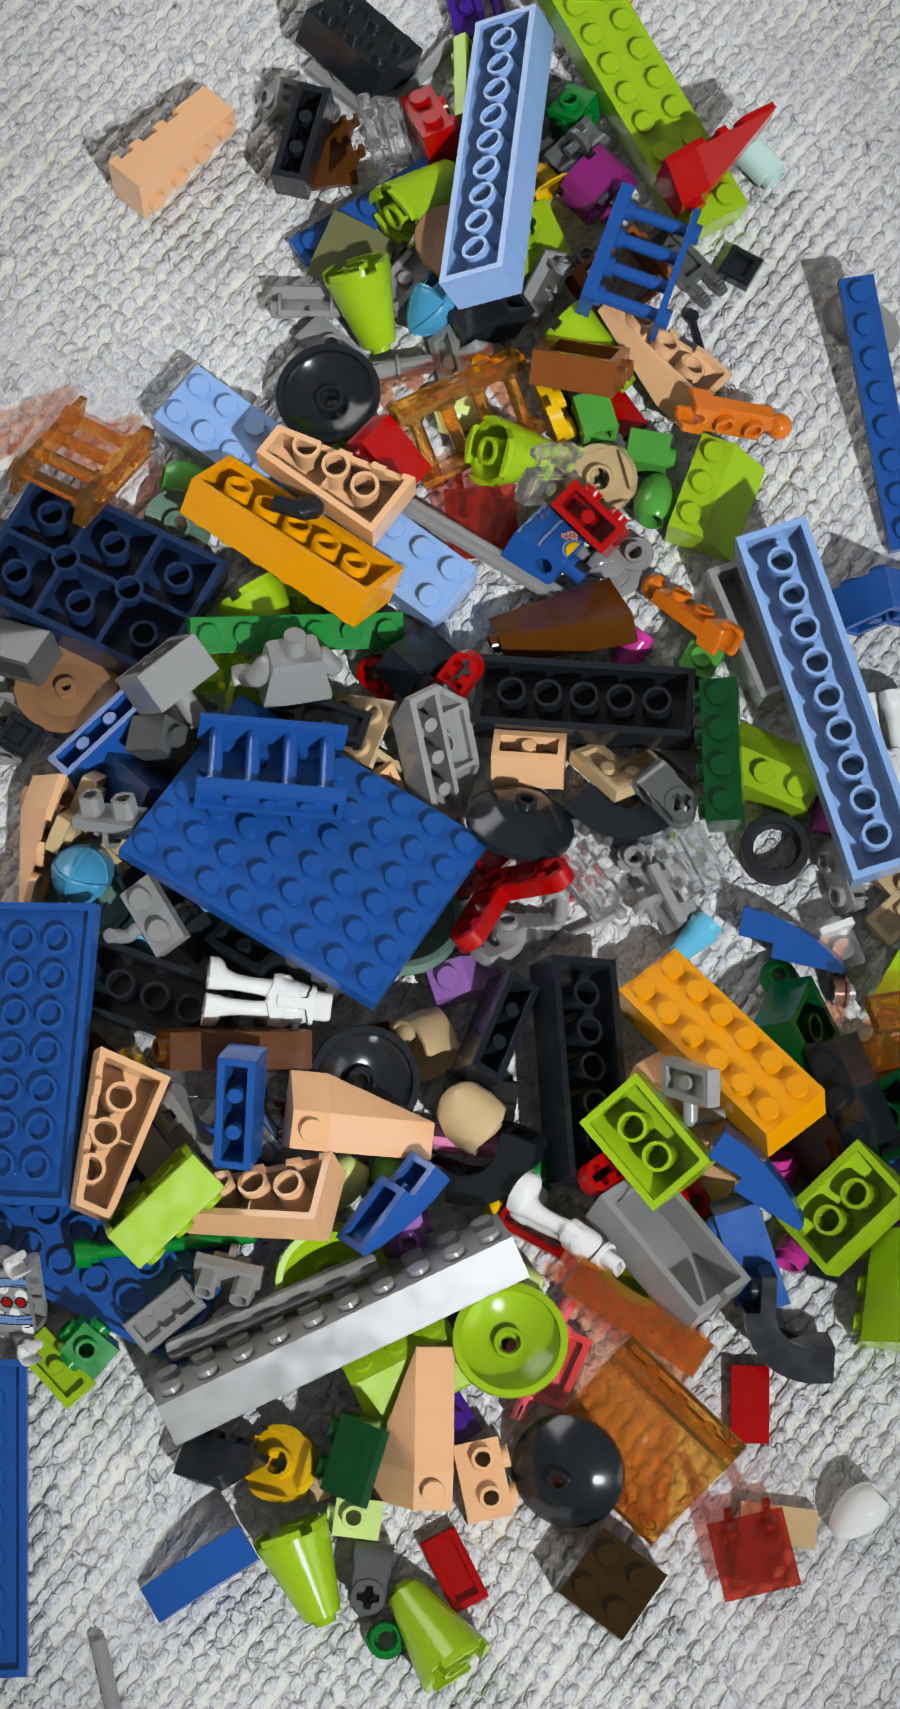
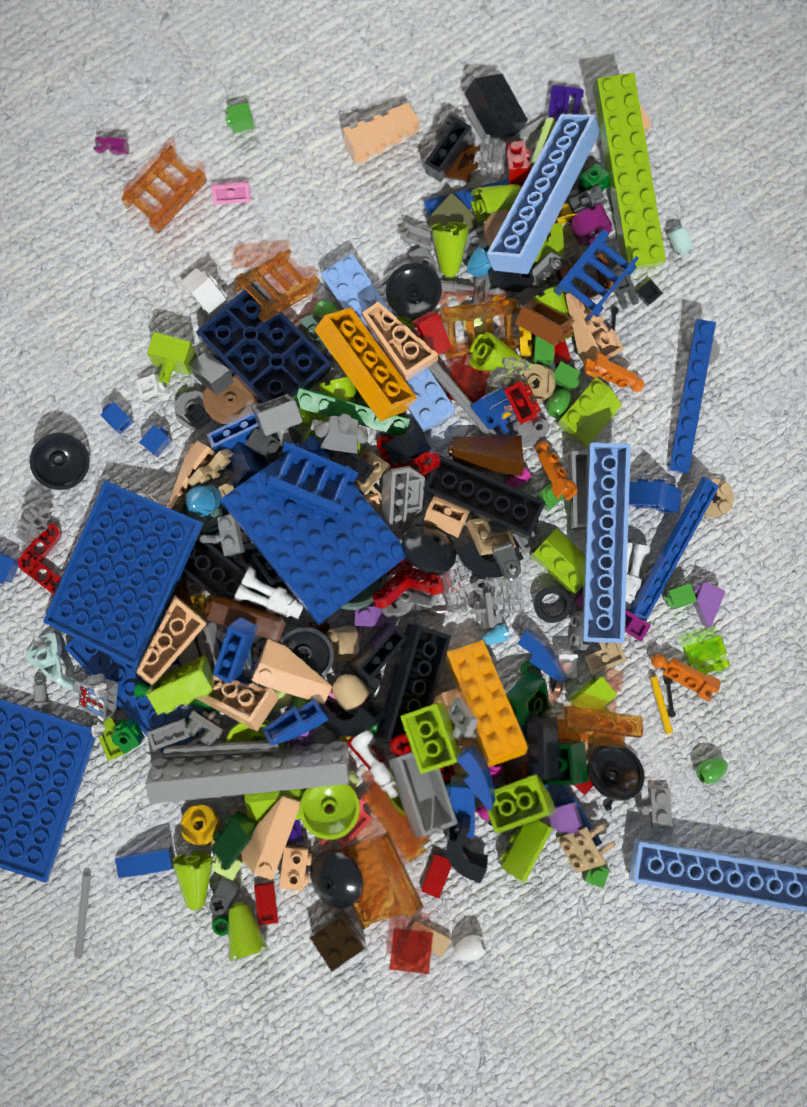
camera: 20 degrees right, 10 degrees up
(108, 820) = (225, 479): light grey hips -> none
(217, 1461) = (171, 814): black slope -> none
(301, 508) = (374, 350): black arm -> none
(700, 166) = (645, 235): red wedge -> none
(722, 755) = (542, 551): dark green brick -> none

